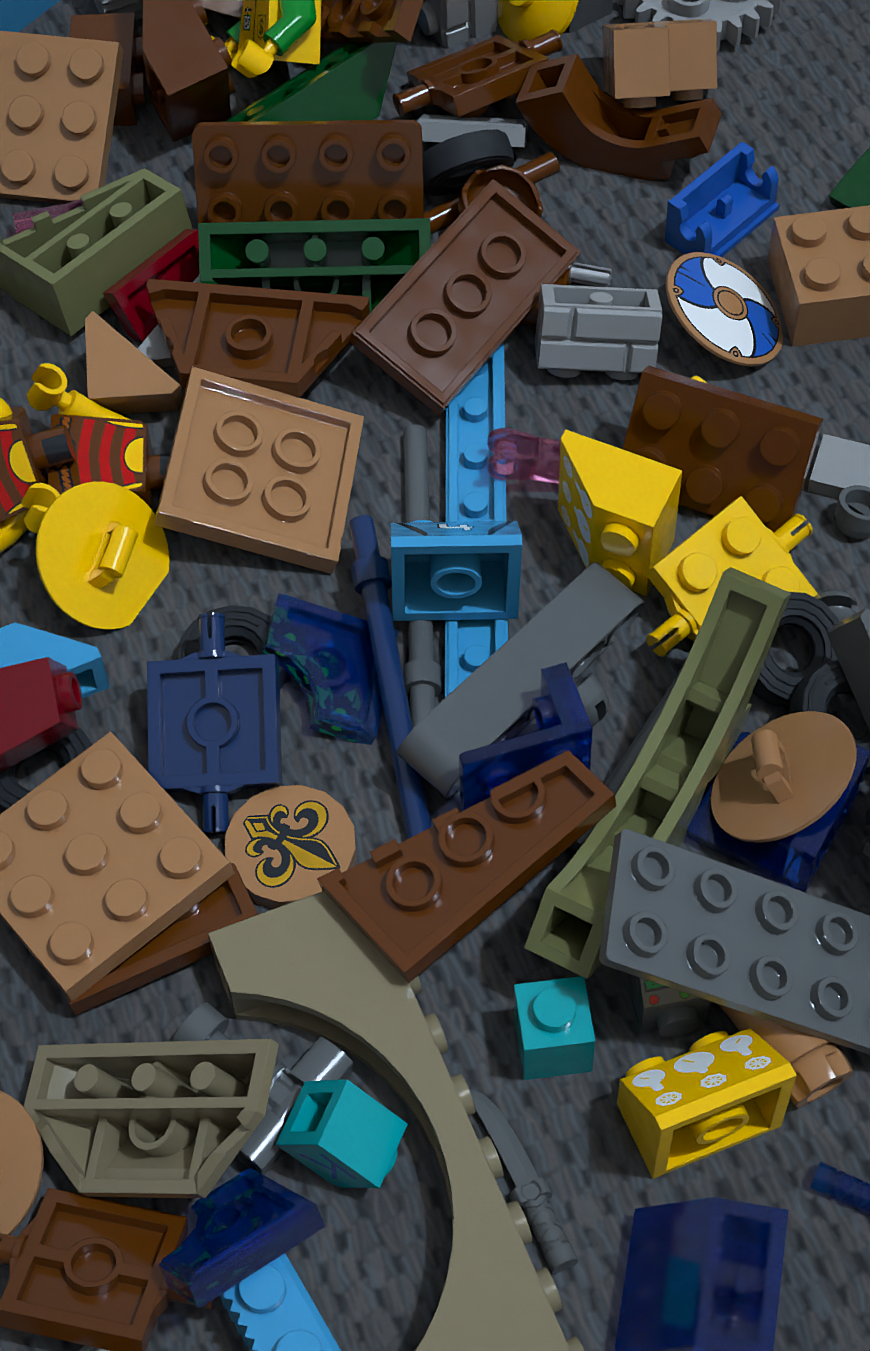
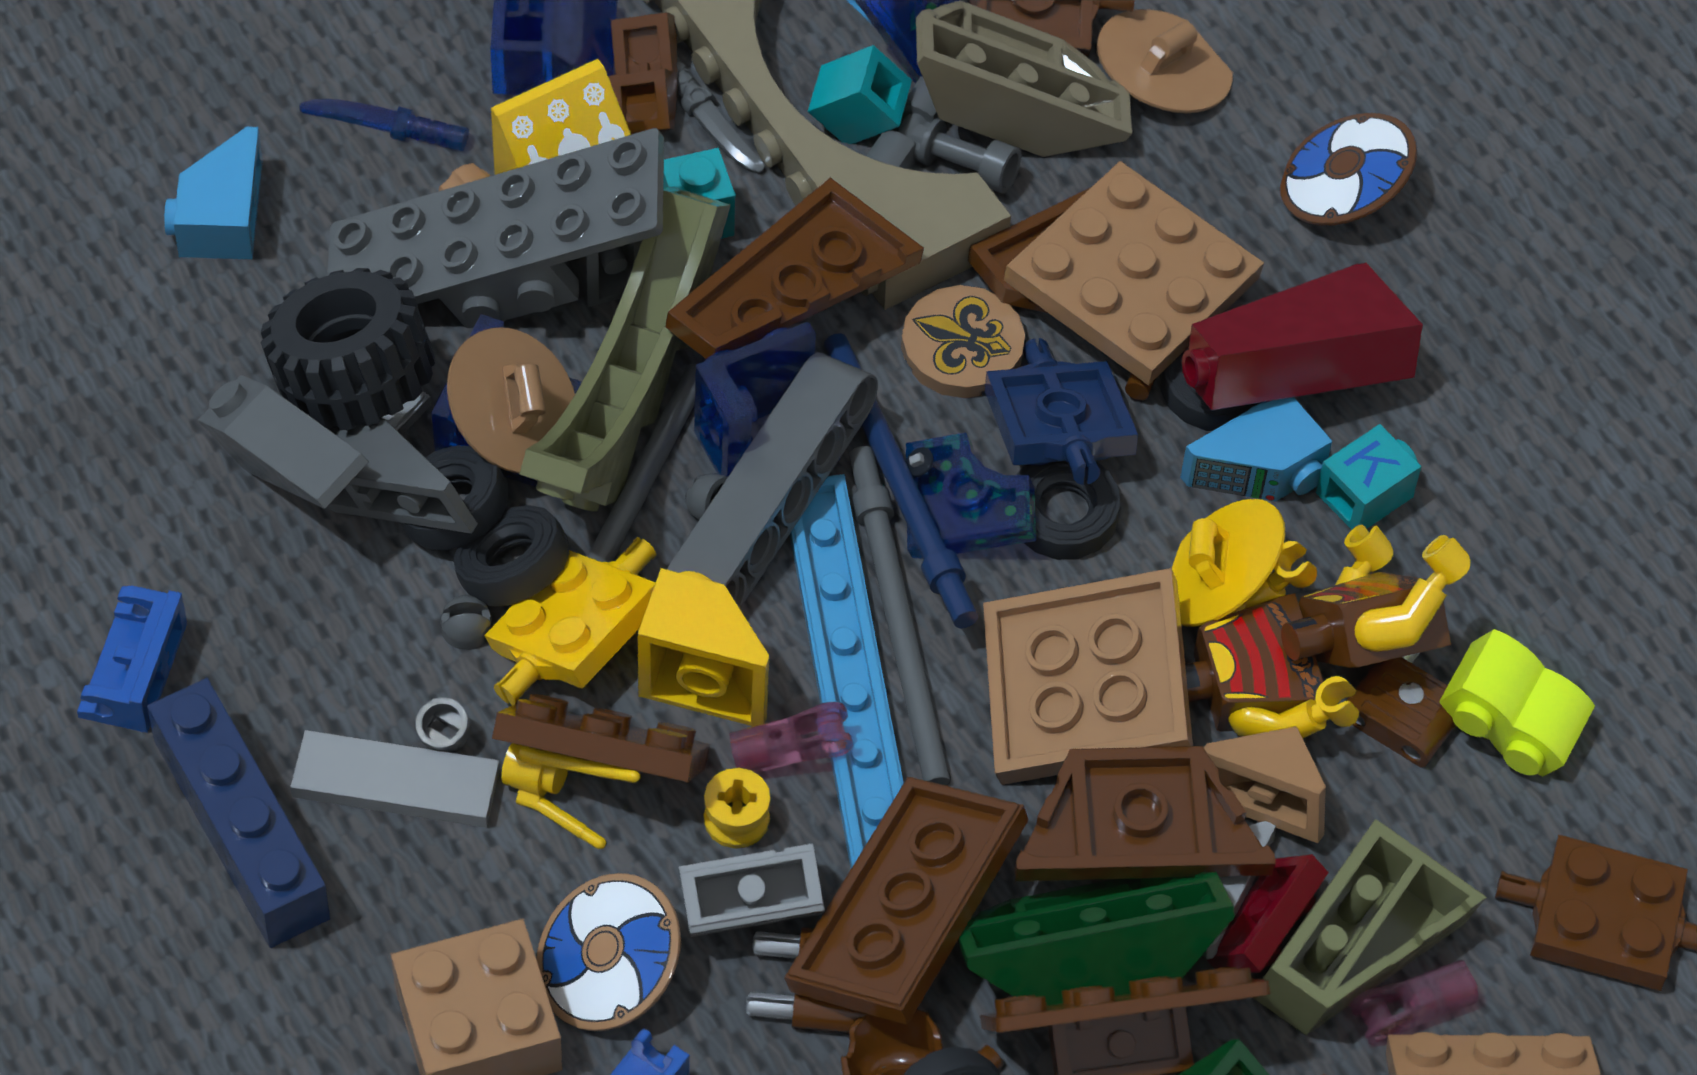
camera: 165 degrees right, 0 degrees up
(368, 700) = (920, 461): none -> black piece
(455, 570) = (858, 560): dark azure slope -> none
(592, 1222) = (645, 70): none -> reddish brown slope
(611, 410) = (736, 825): none -> yellow wheel

